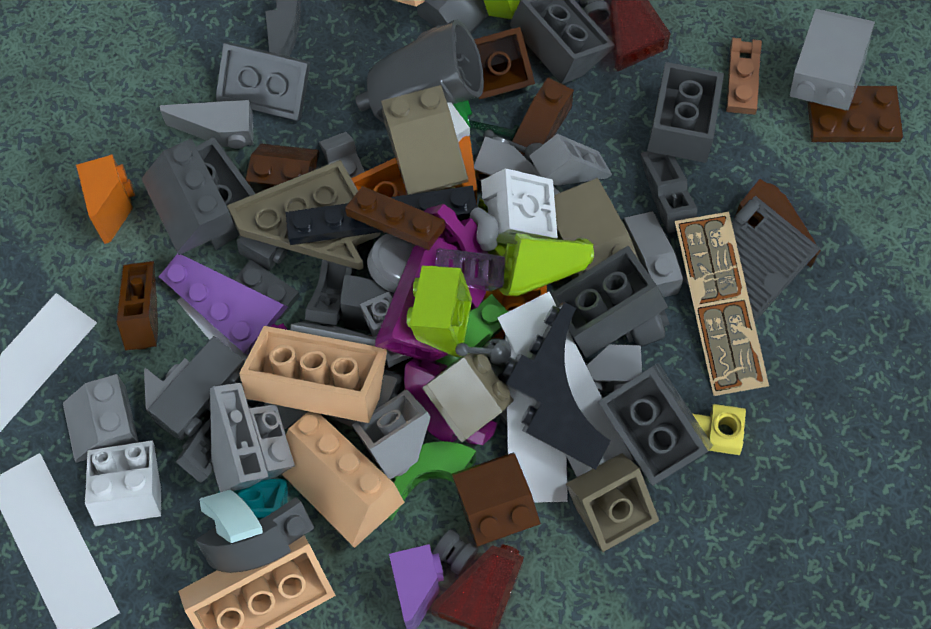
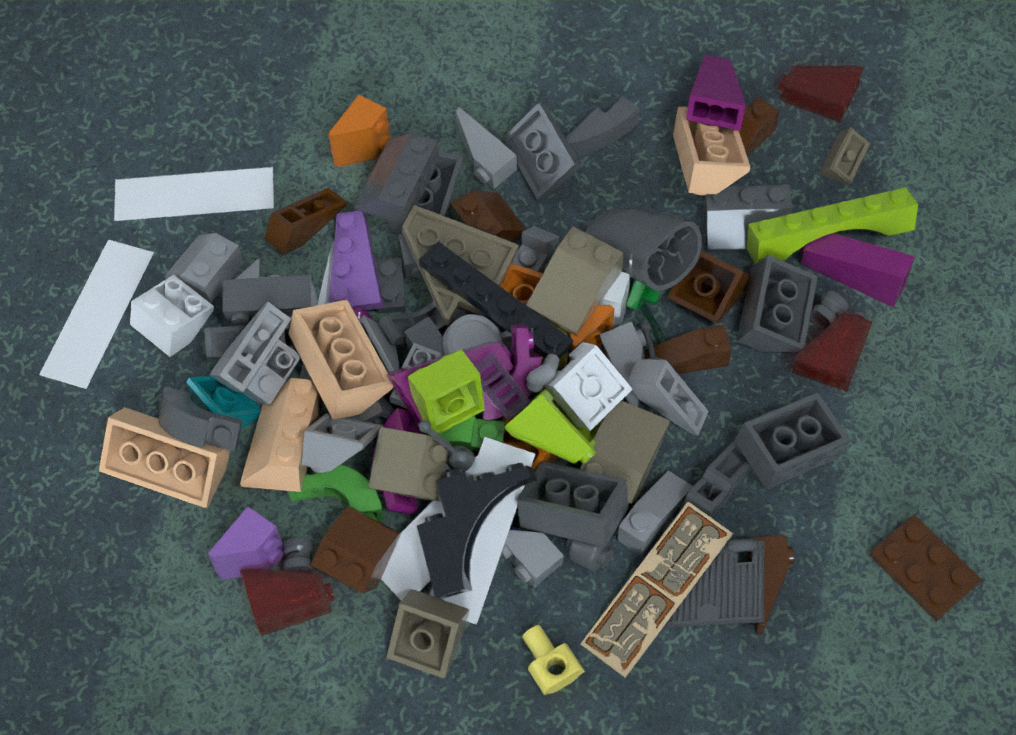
camera: 50 degrees right, 5 degrees down
(231, 515) = (191, 389): light aqua slope -> none
(395, 218) = (492, 309): reddish brown plate -> none
(655, 424) = (506, 610): dark grey brick -> none
(743, 77) = (876, 462): nougat plate -> none
(832, 59) = (943, 509): light grey slope -> none

